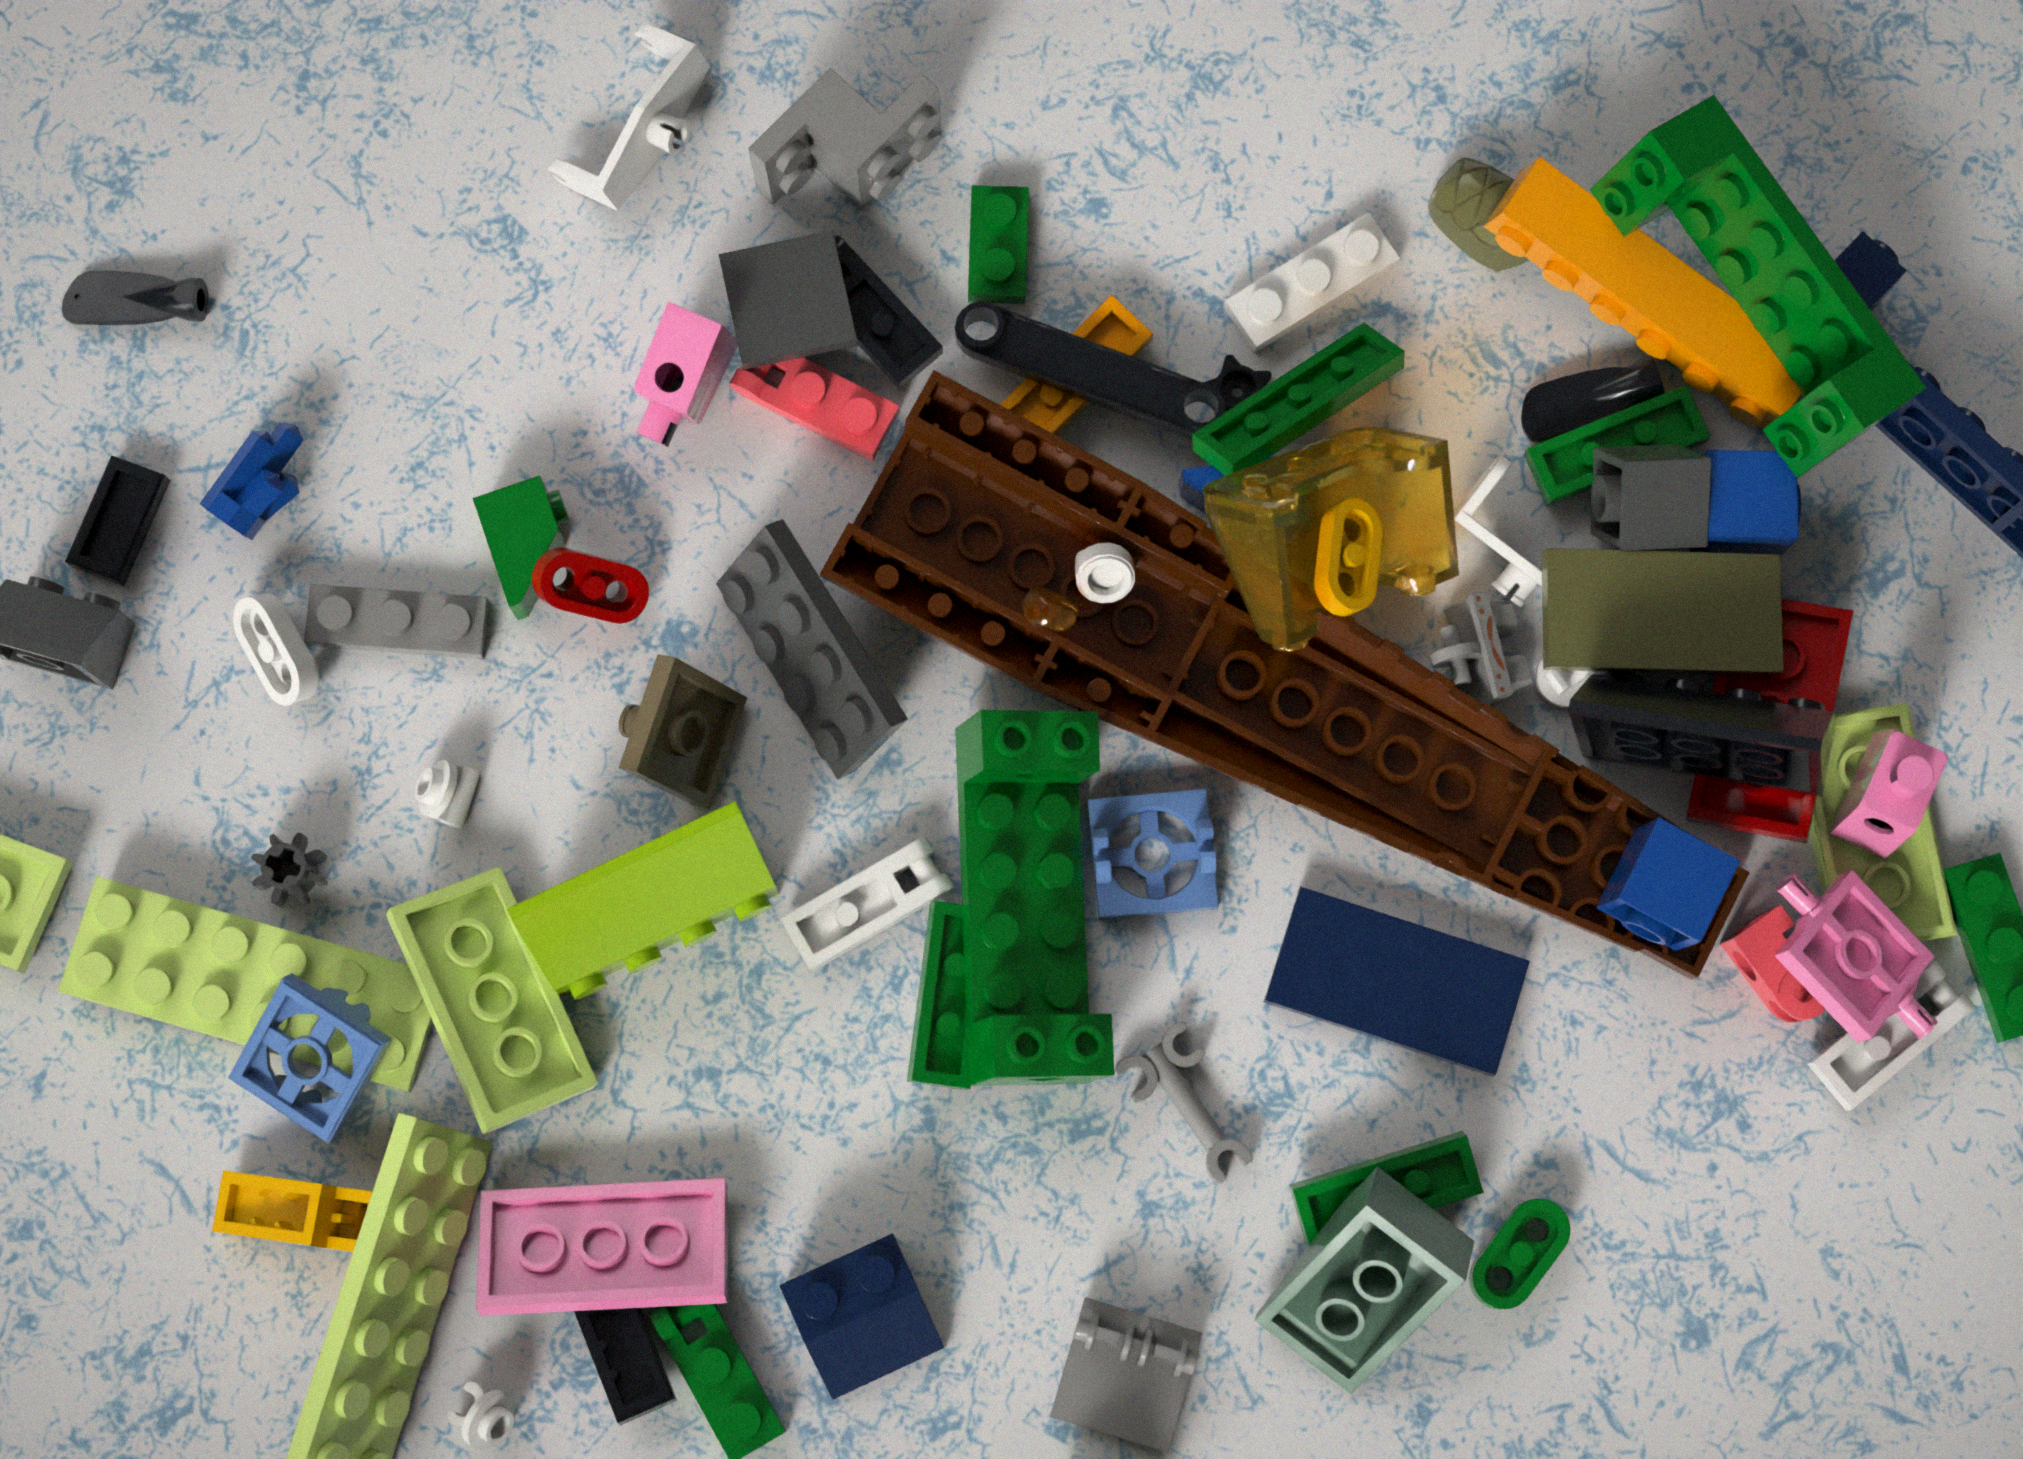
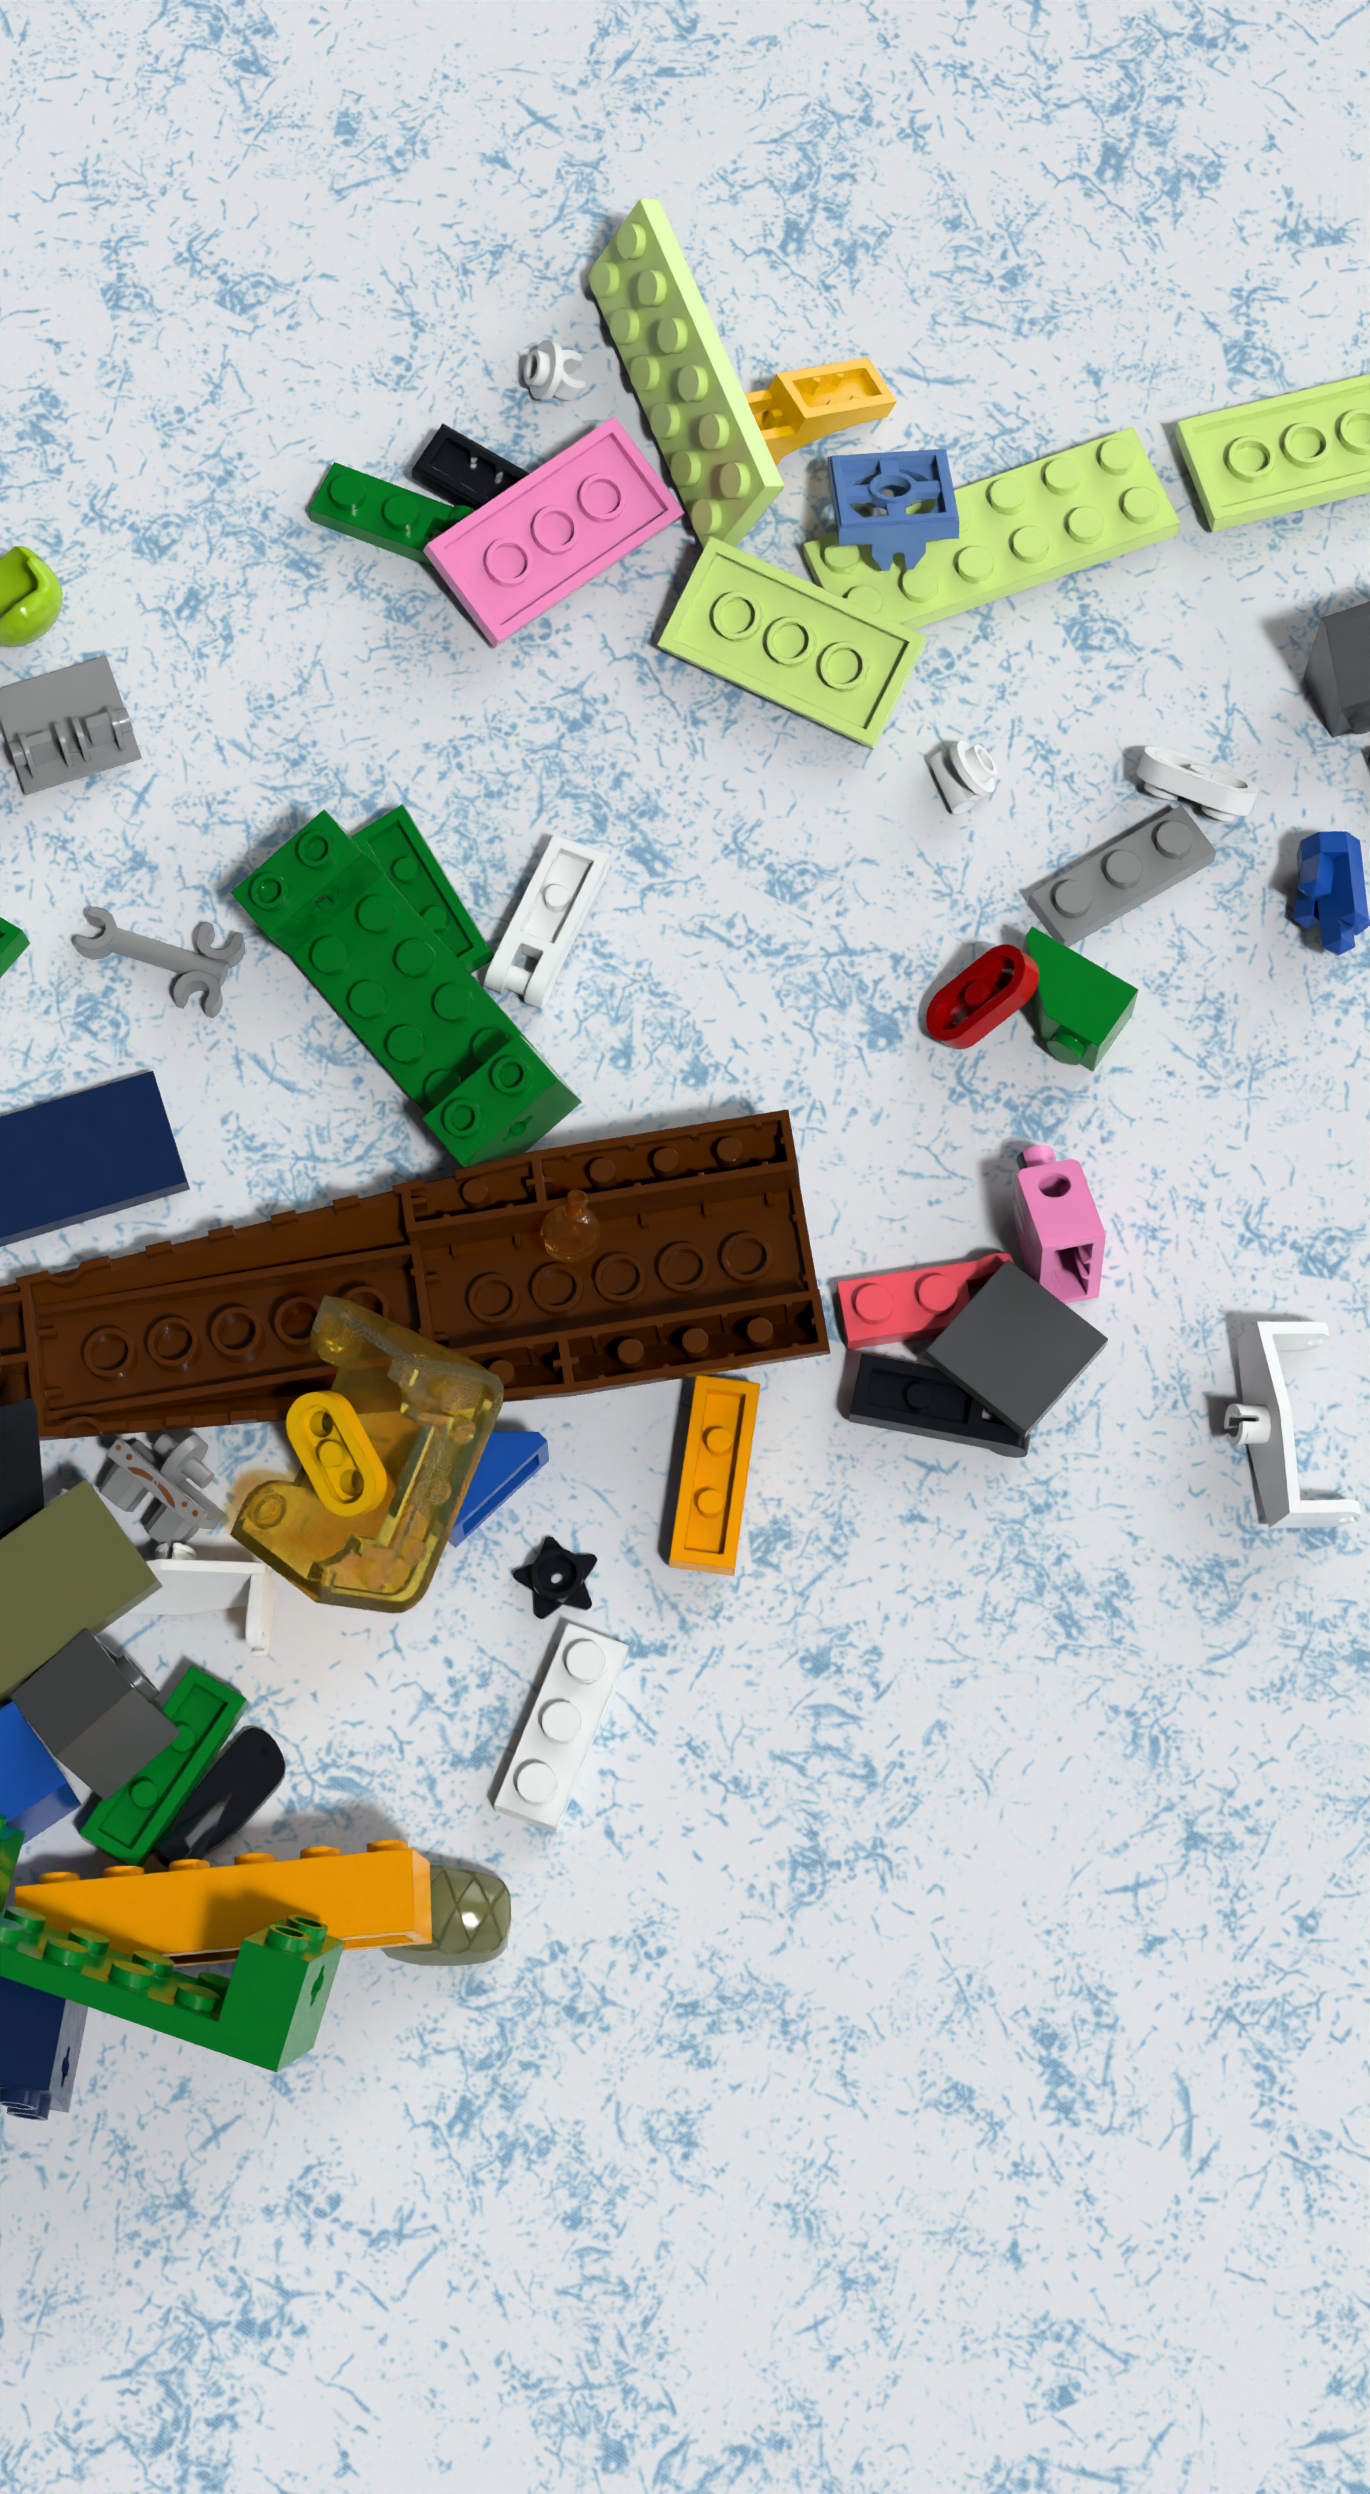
camera: 145 degrees right, 10 degrees down
(287, 854) = (1036, 630): dark grey gear -> none
(646, 902) = (724, 783): lime slope -> none
(681, 731) = (806, 930): dark tan tile -> none
(810, 650) = (736, 1060): dark grey plate -> none
(847, 140) = (1078, 1522): light grey bracket -> none
(862, 1316) = (317, 625): dark blue slope -> none
(998, 244) = (877, 1555): green plate -> none
(1086, 369) = (698, 1477): black piece -> none
(1104, 572) = (548, 1296): white tile -> none
(1192, 810) = (339, 1066): medium blue piece -> none
(1298, 400) = (486, 1581): green plate -> none

